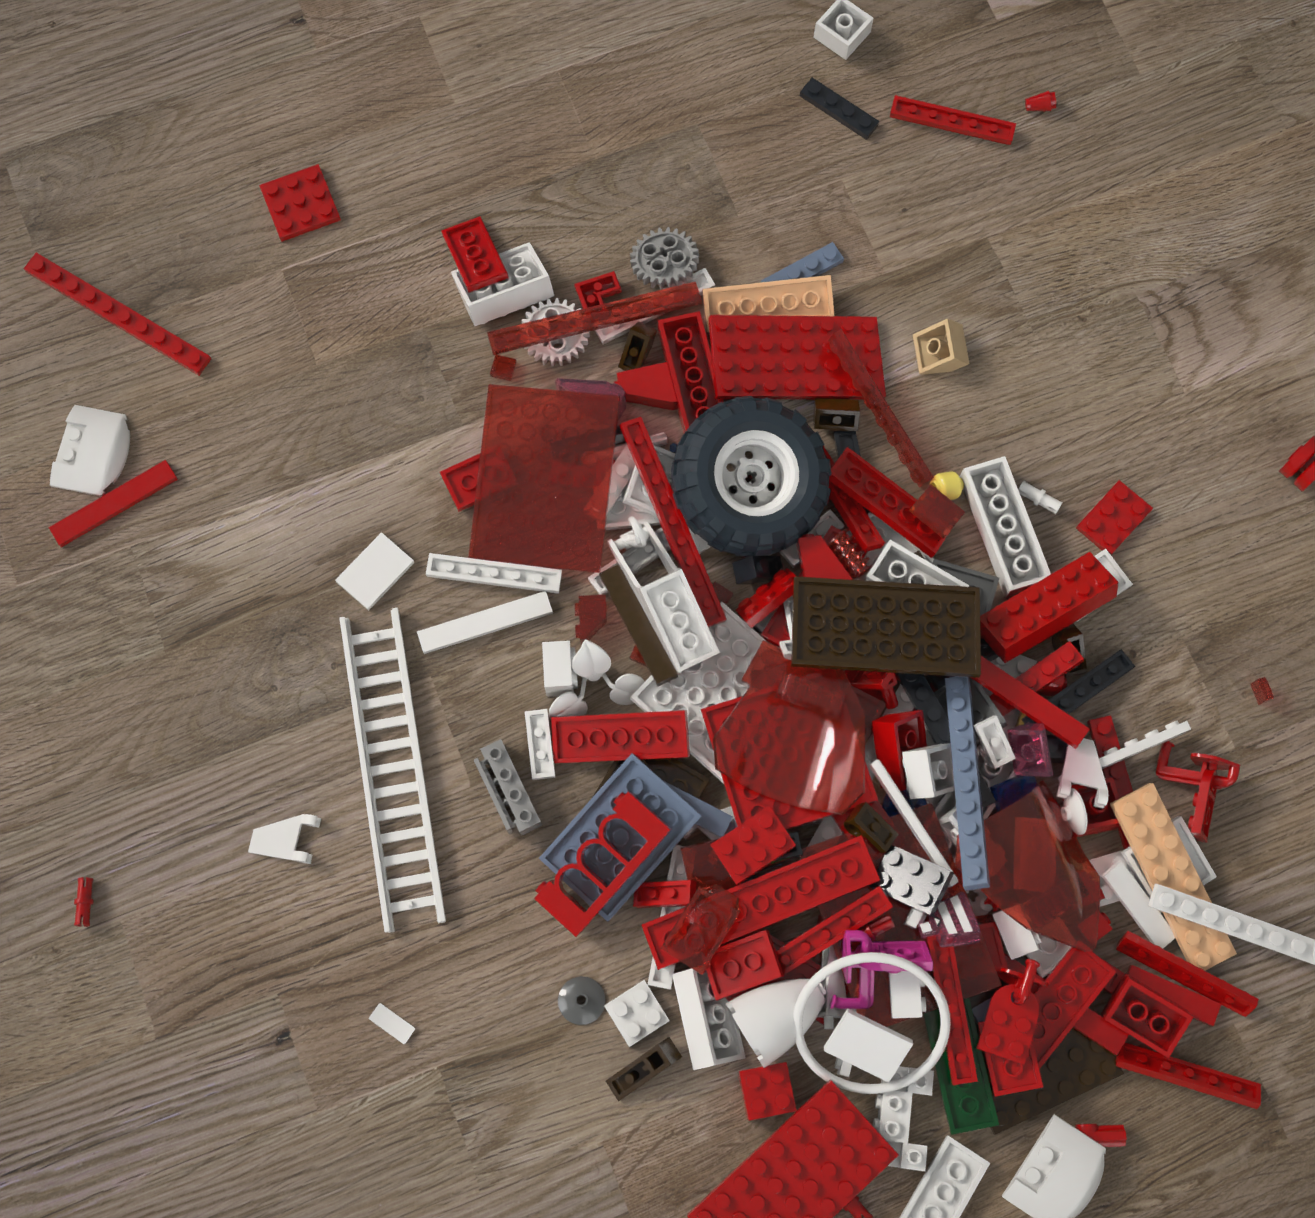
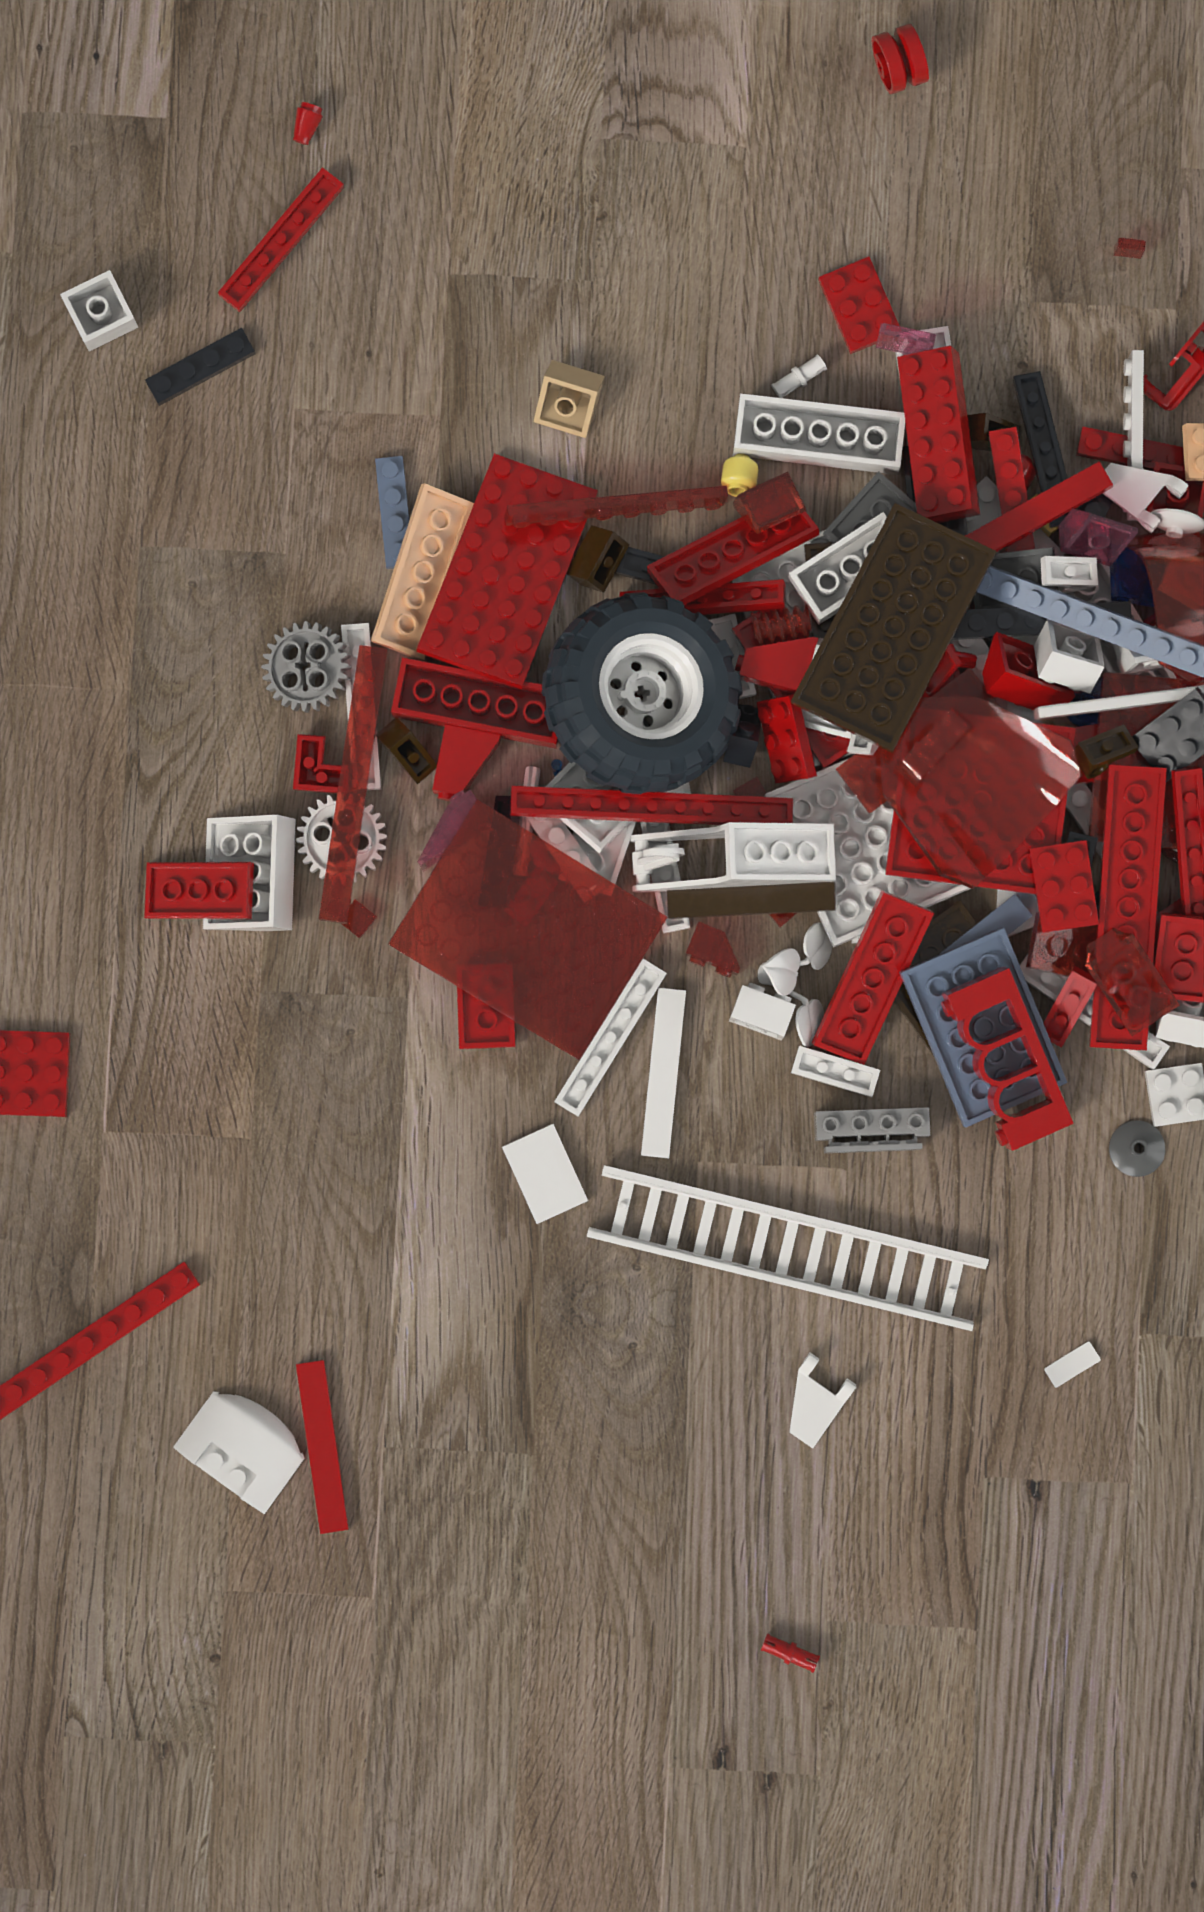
camera: 65 degrees left, 10 degrees up
(1104, 549) = (904, 339): none -> clear pink tile

